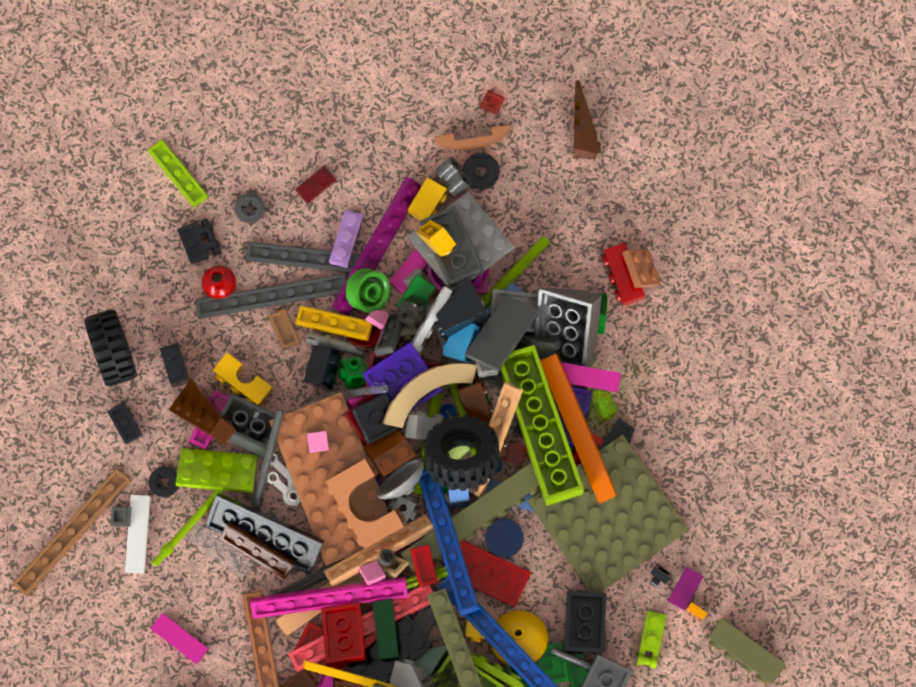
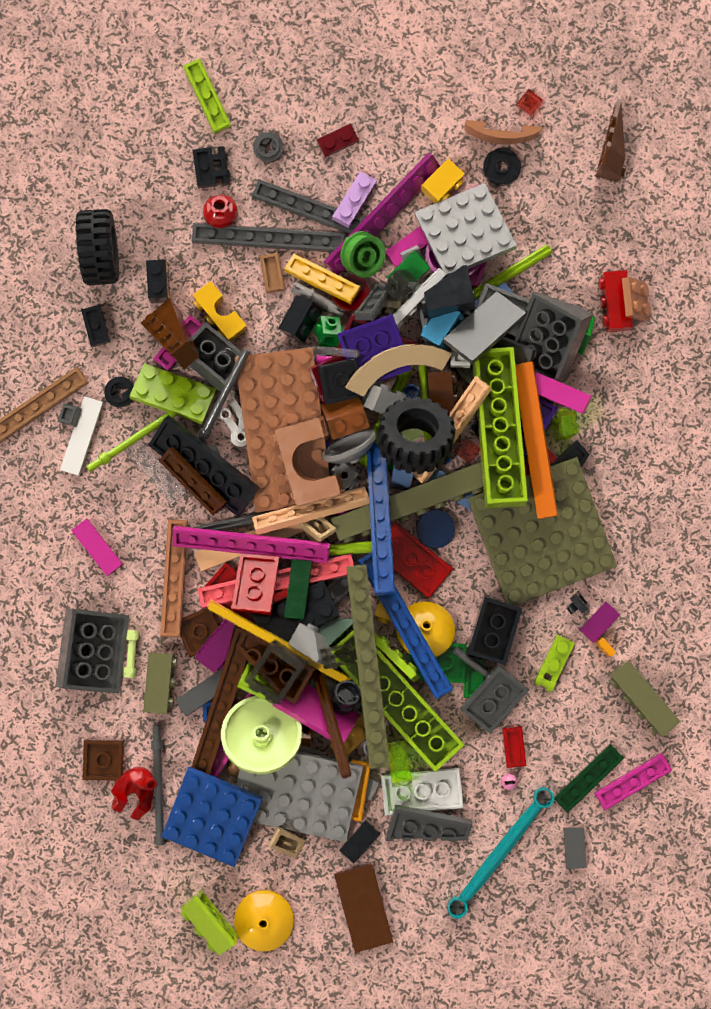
camera: 10 degrees right, 5 degrees up
(317, 442) = (276, 389): bright pink tile -> none
(372, 572) = (298, 531): bright pink tile -> none
(378, 318) = (366, 284): bright pink tile -> none
(388, 558) = (319, 519): dark grey hinge -> none
(423, 565) = (350, 536): red tile -> none
(436, 238) = (443, 218): yellow slope -> none
(453, 176) = (474, 164): dark grey axle -> none
(462, 260) = (456, 231): dark grey tile -> none

